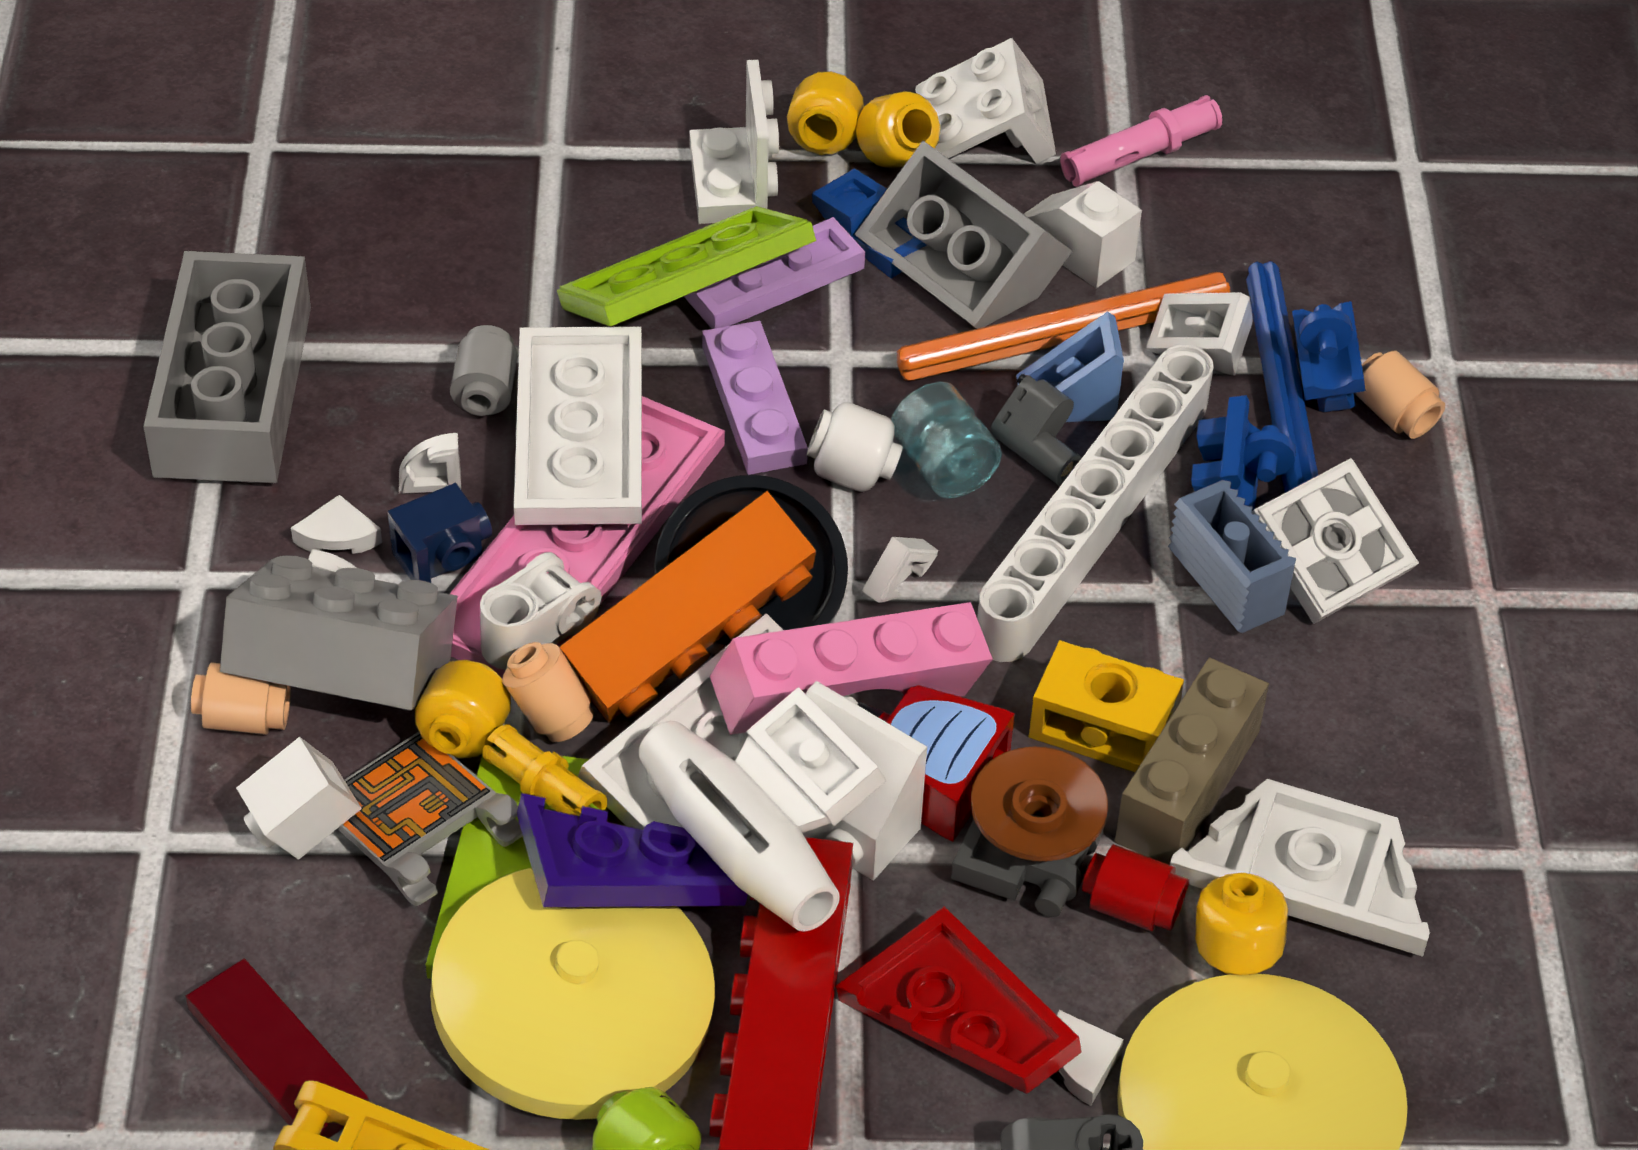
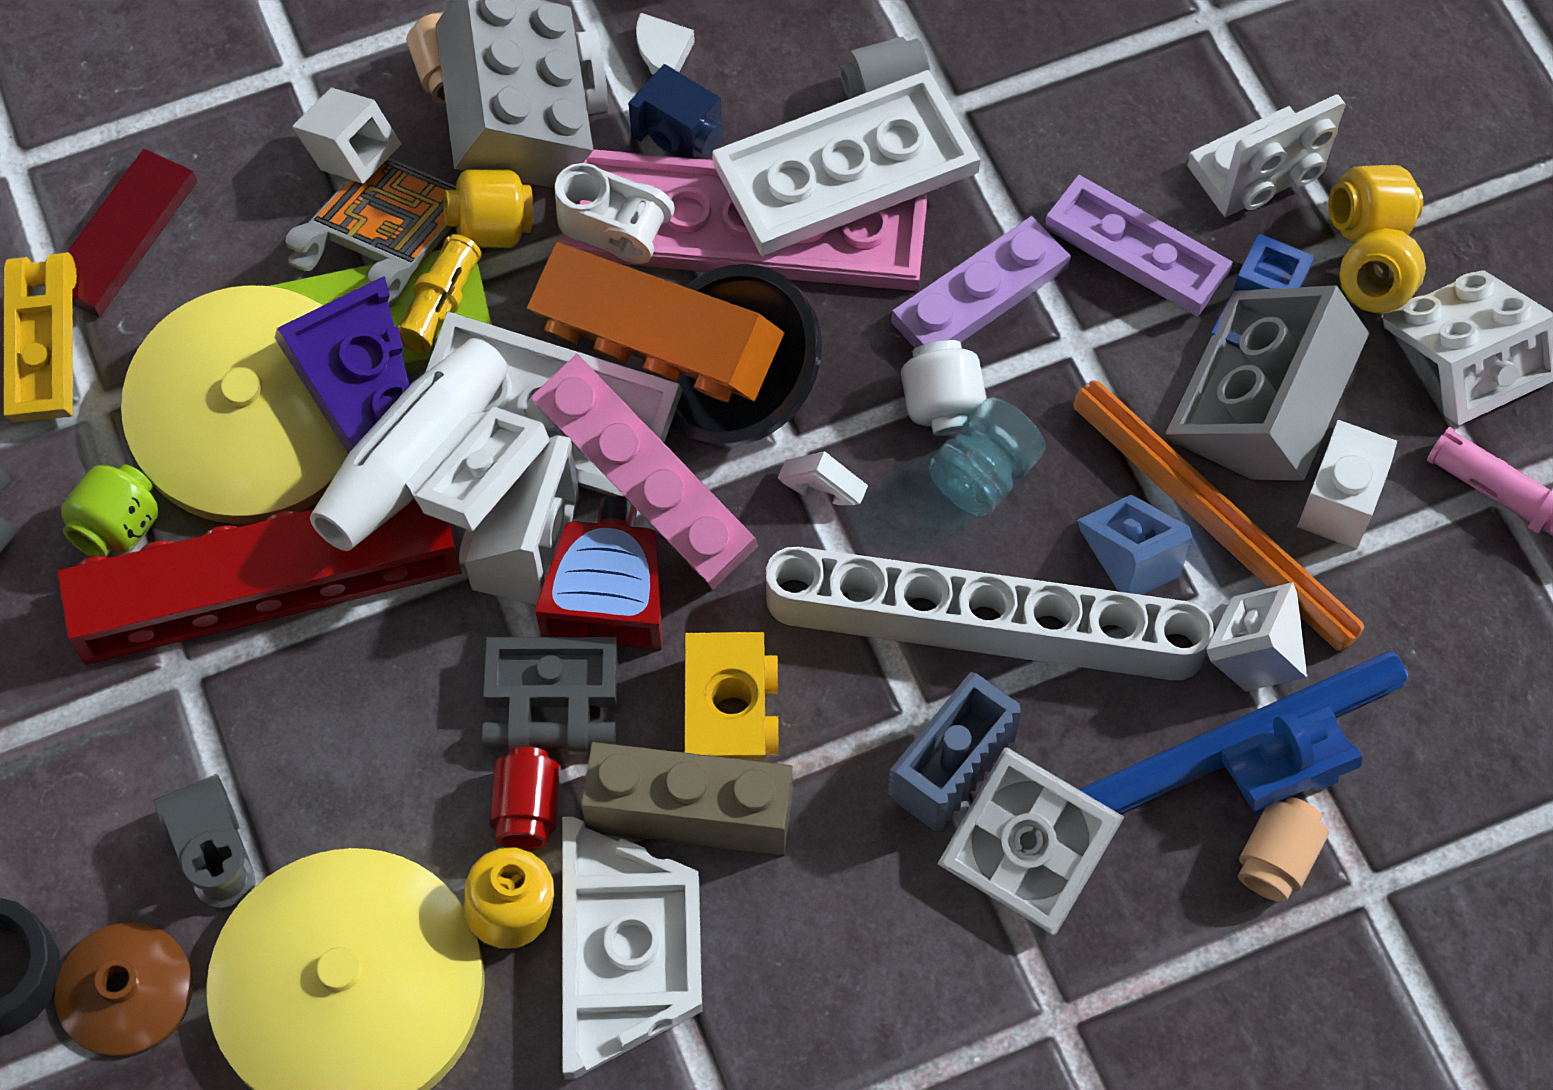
camera: 70 degrees right, 15 degrees up
(431, 465) = (759, 84): white tile -> none
(548, 691) = (524, 253): light nougat brick -> none
(685, 265) = (1094, 168): lime tile -> none
(963, 1002) = (347, 699): red wing -> none
(1030, 427) = (1056, 525): dark grey piece -> none
(1042, 784) = (546, 651): dark orange dish -> none
(1090, 1068) = (337, 817): white tile -> none
(1244, 452) = (1106, 725): blue hips -> none

